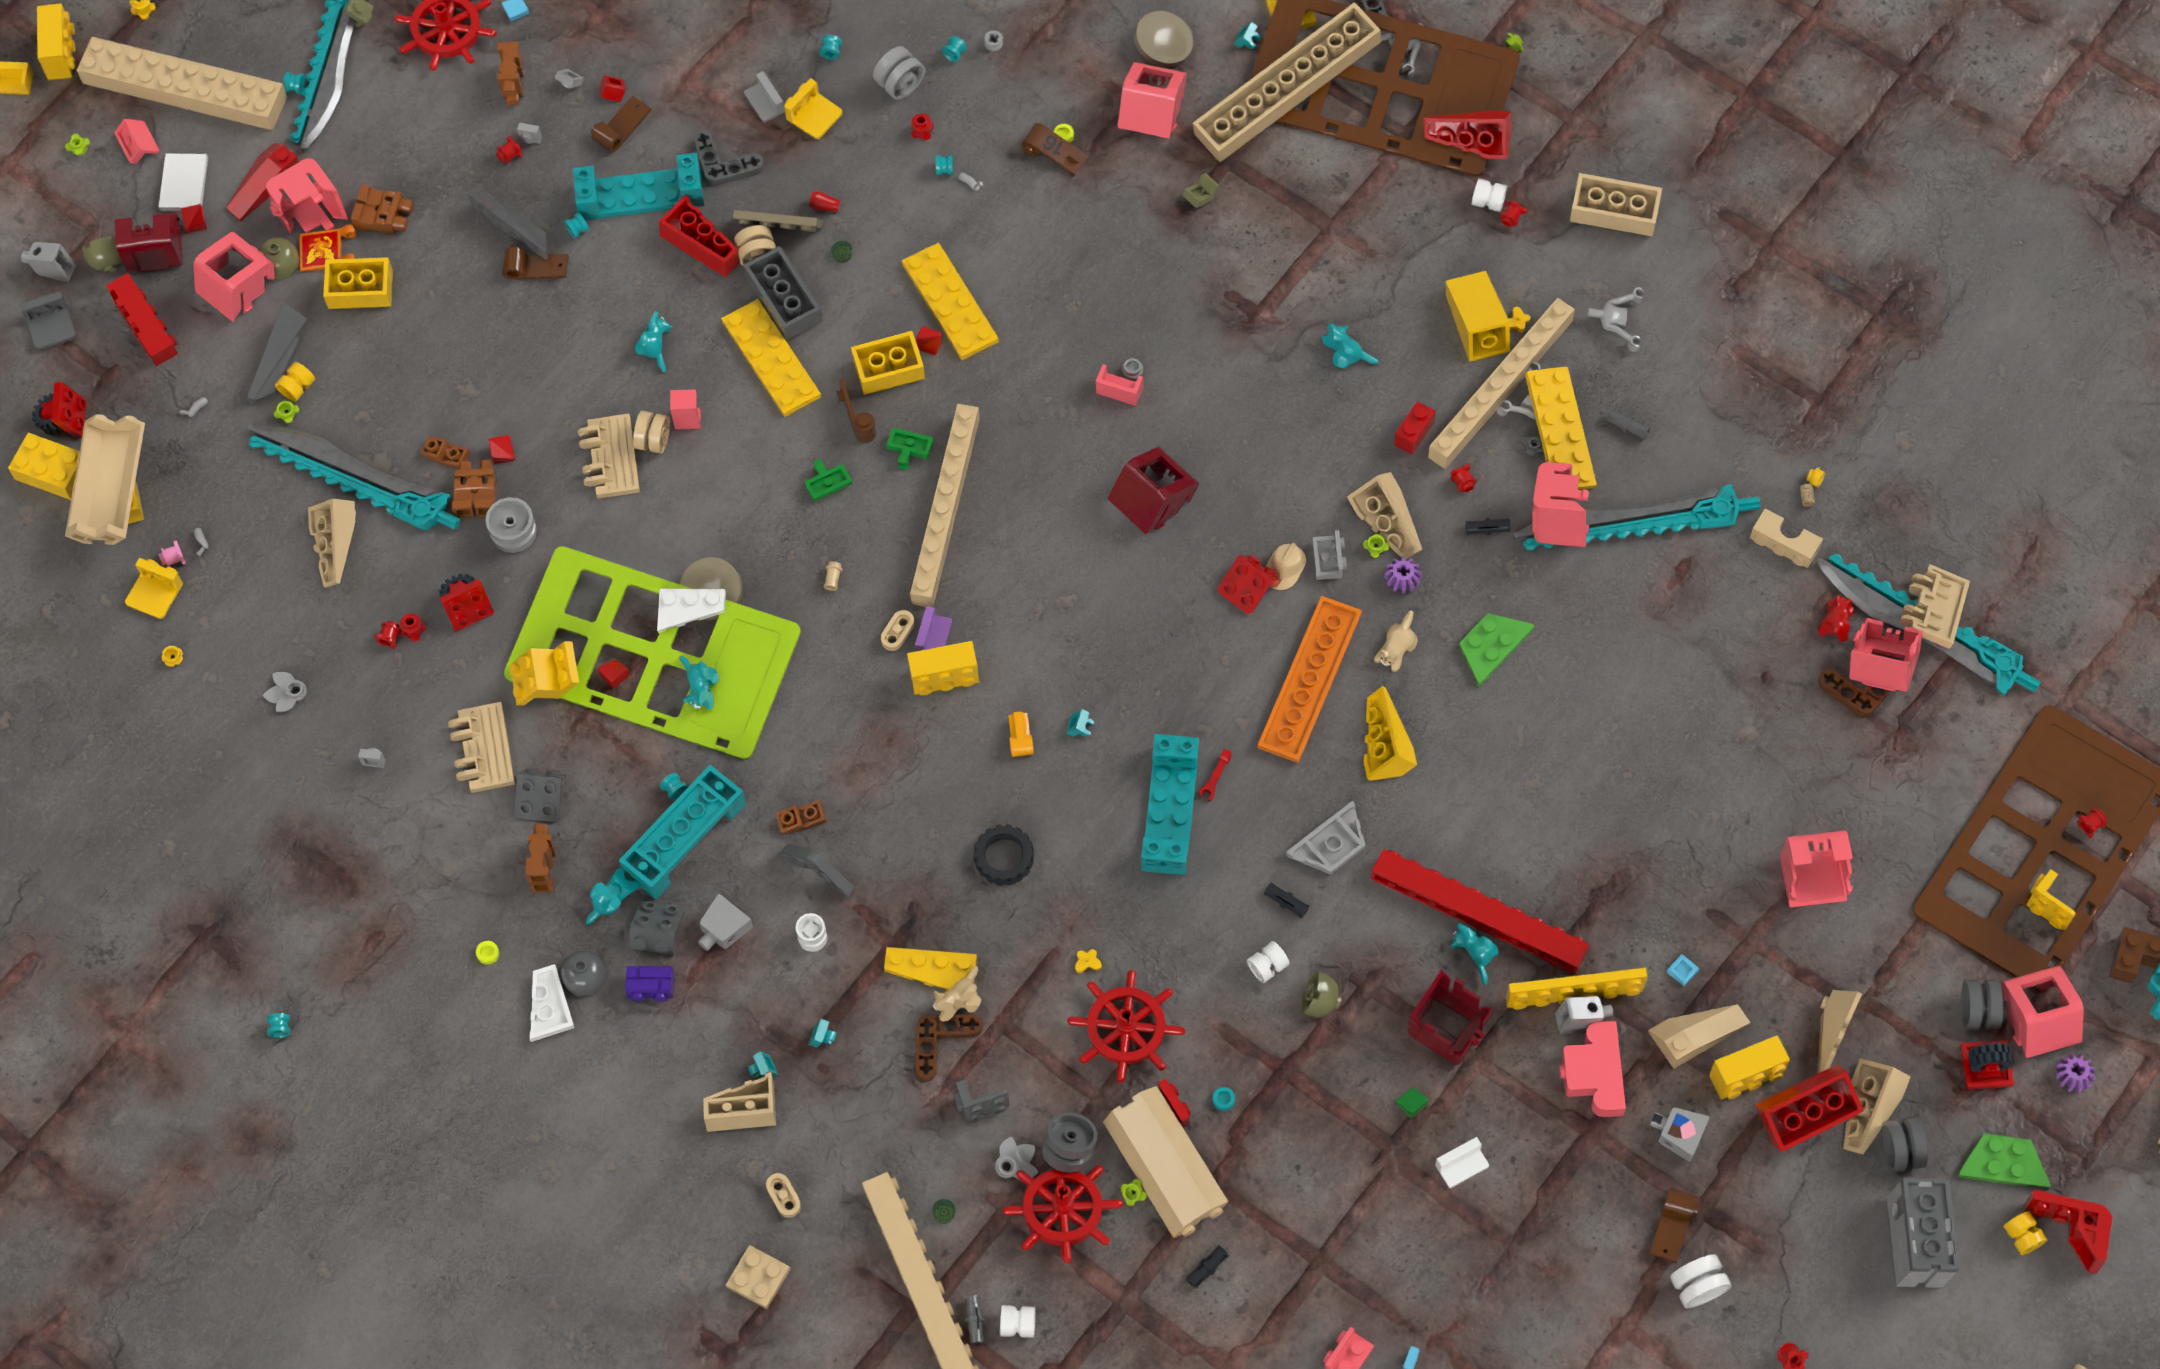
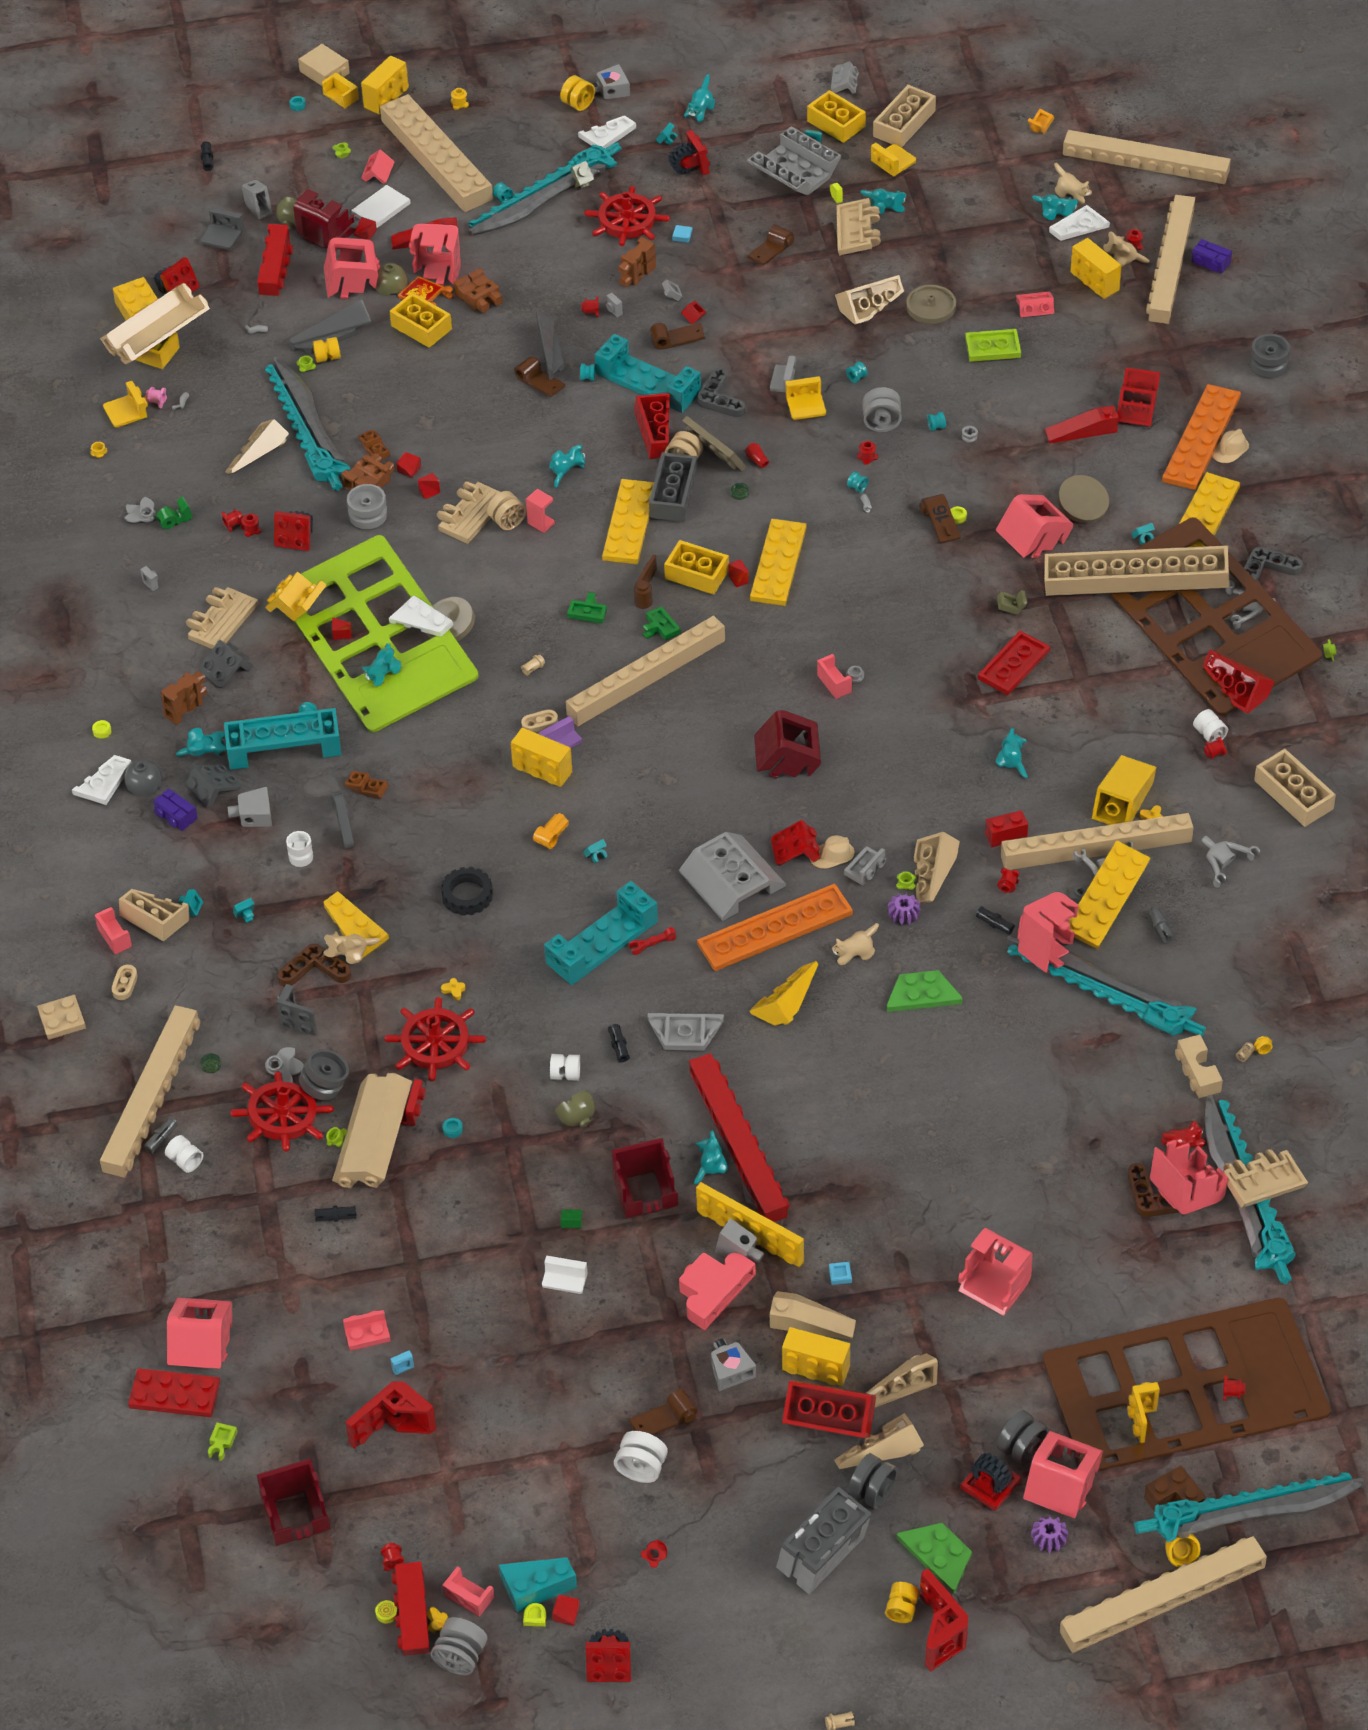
camera: 40 degrees right, 15 degrees down
(322, 676) = (169, 517): none -> green leg
(545, 458) = (428, 486): none -> red slope
(720, 1153) = (112, 931): none -> coral panel
(1219, 668) = (717, 877): none -> light grey slope
(1260, 253) = (1013, 662): none -> red plate

